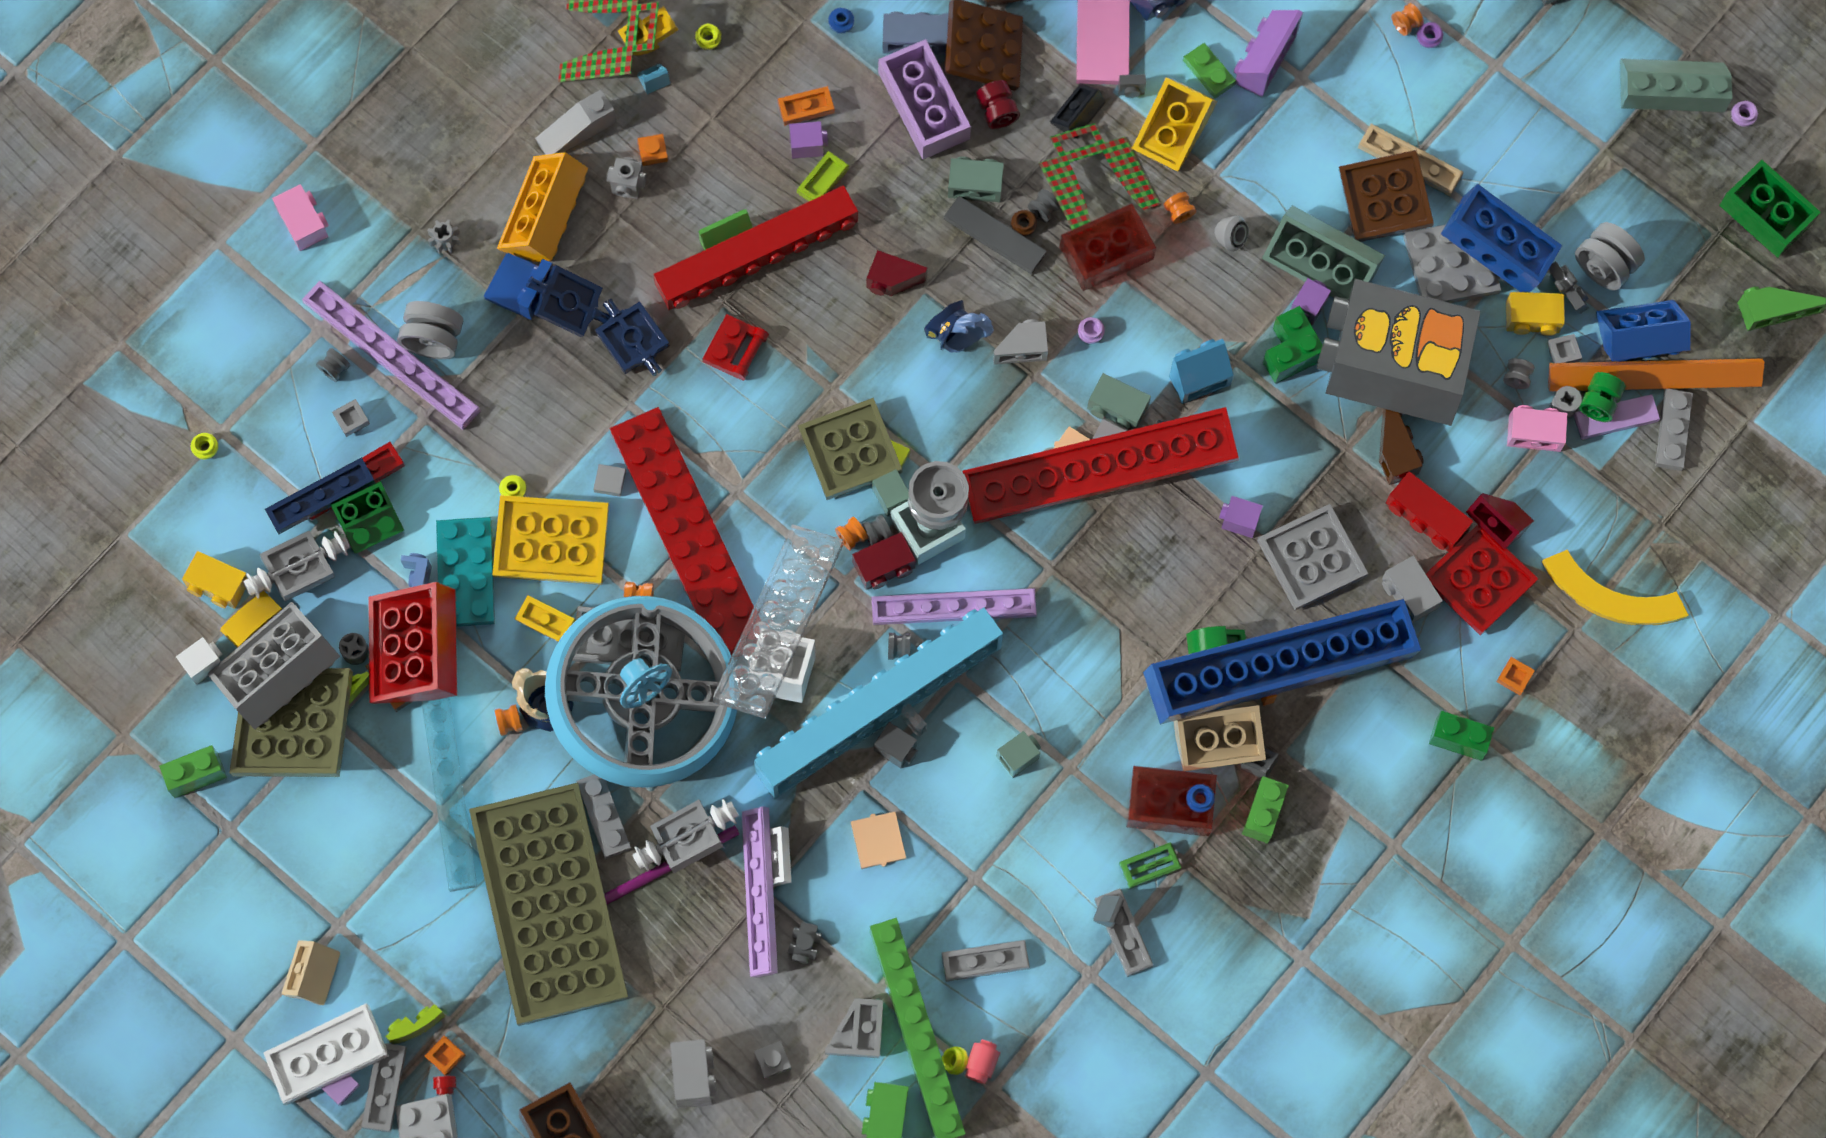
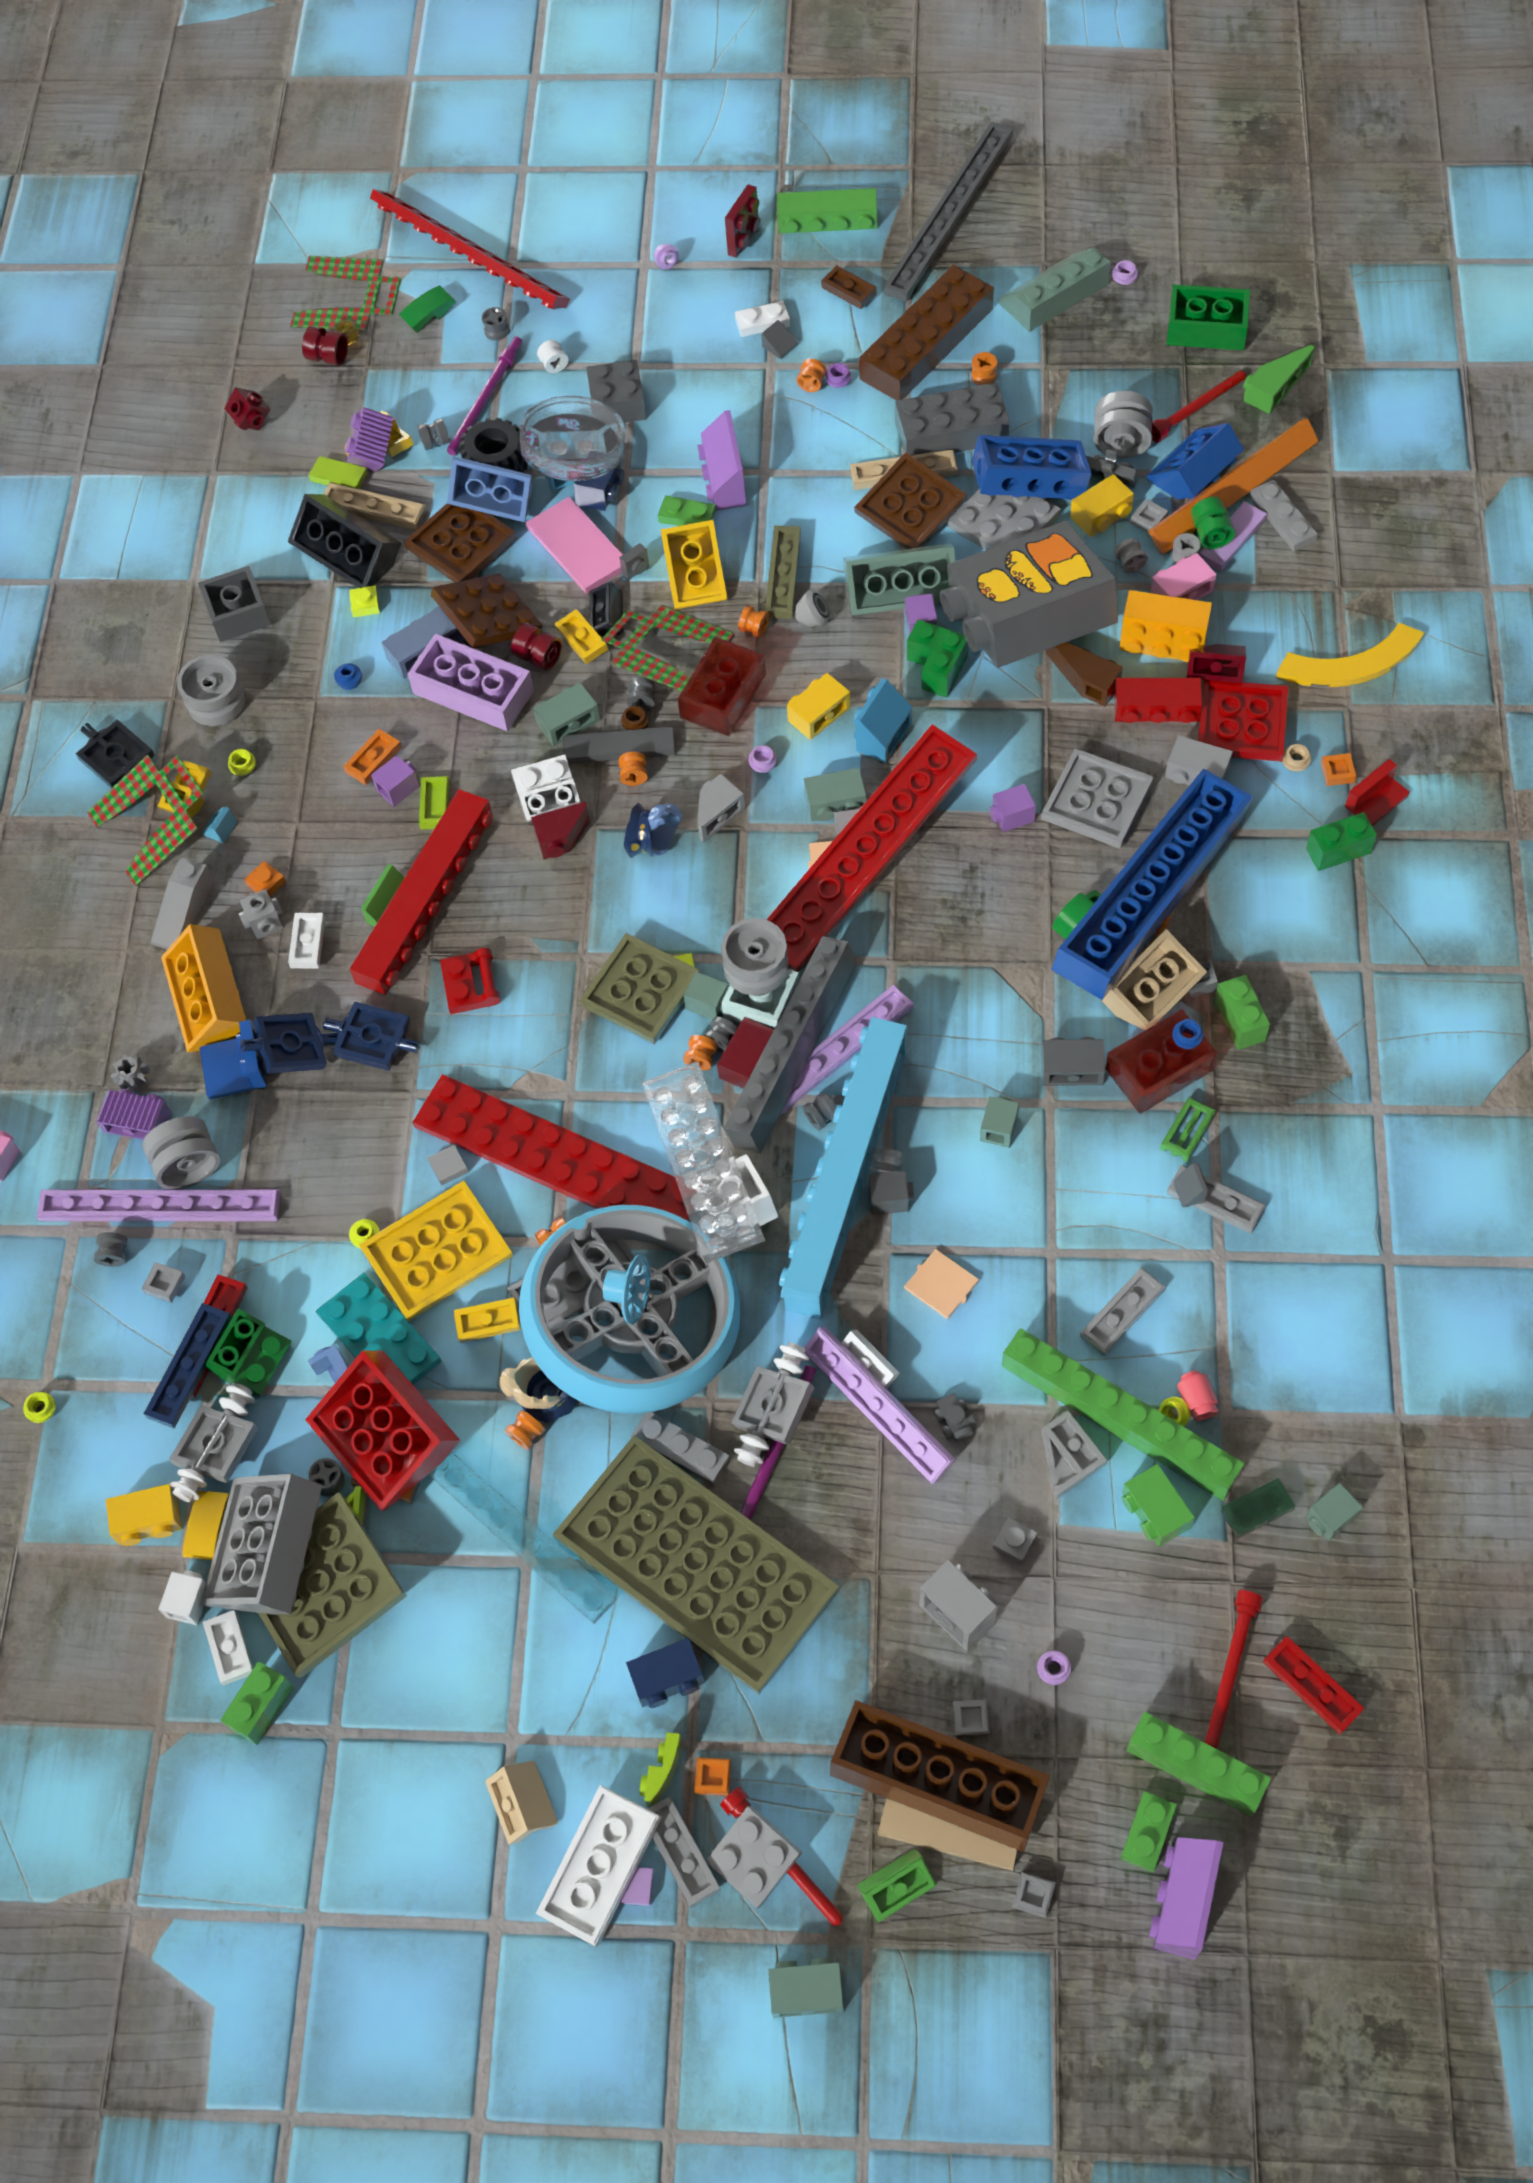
camera: 30 degrees left, 10 degrees down
(203, 717) = (228, 1647): none -> white plate
(422, 272) = (132, 1114): none -> medium lavender brick
(467, 963) = (665, 1673): none -> dark blue brick
(644, 224) = (306, 940): none -> white plate
(909, 233) = (545, 786): none -> white brick
(919, 578) = (790, 1045): none -> dark grey brick
(987, 264) = (632, 768): none -> orange wheel
(1039, 120) = (581, 636): none -> yellow plate
(1110, 750) = (1073, 1062): none -> dark grey brick
(1168, 318) = (818, 706): none -> yellow brick
(1238, 180) = (783, 571): none -> olive plate
(1481, 147) = (950, 419): none -> dark grey brick
(1484, 456) = (1163, 625): none -> light orange brick
(1497, 635) = (1299, 752): none -> tan plate
(1526, 719) = (1377, 793): none -> red panel
(1531, 49) = (926, 333): none -> reddish brown brick
(1547, 122) = (984, 368): none -> orange wheel
(1642, 279) = (1162, 427): none -> red piece

